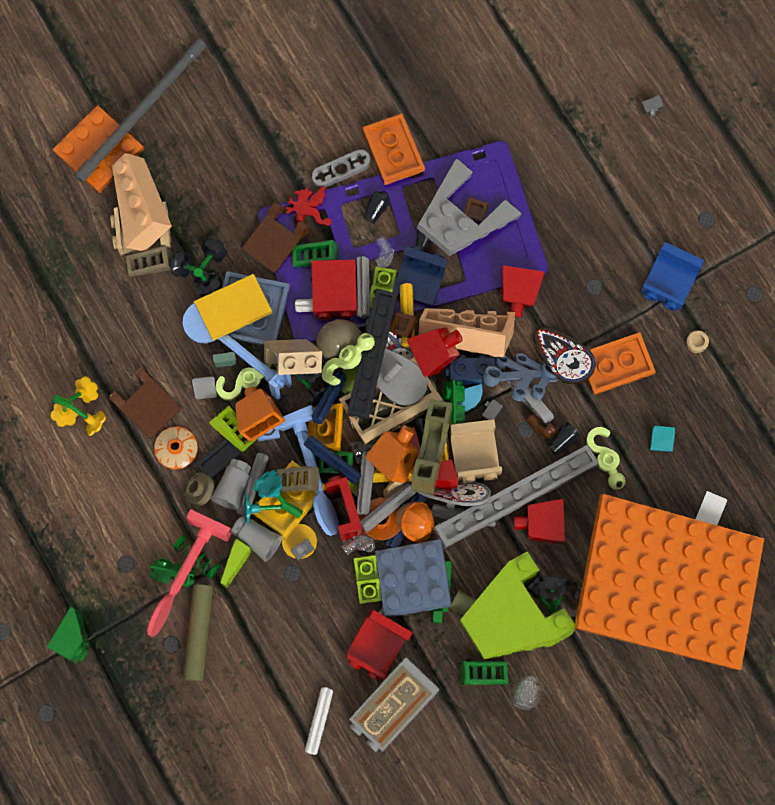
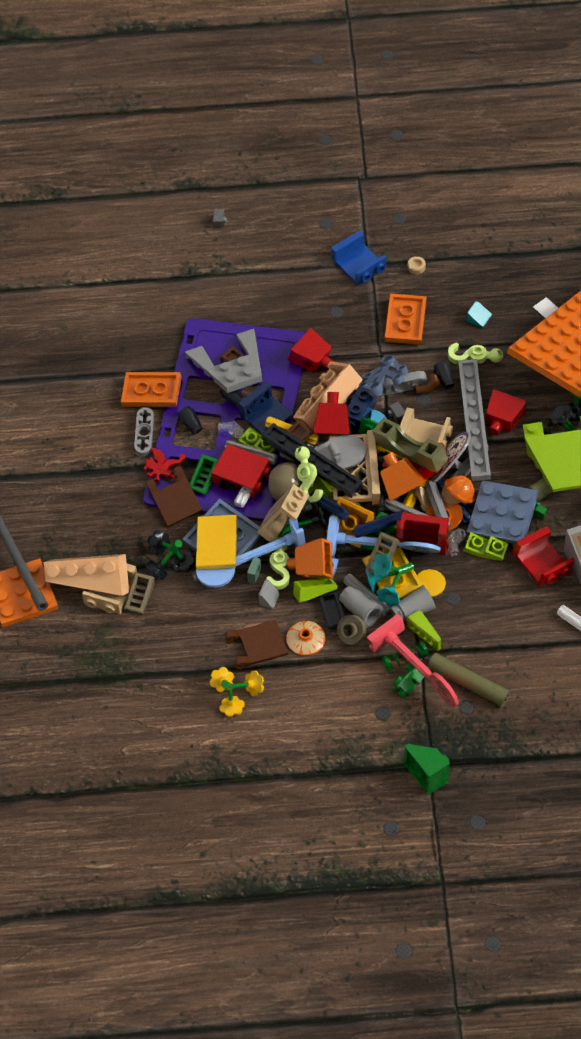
camera: 60 degrees left, 20 degrees down
(302, 549) = (439, 580): flat silver piece -> none
(565, 356) = (381, 345): shield -> none

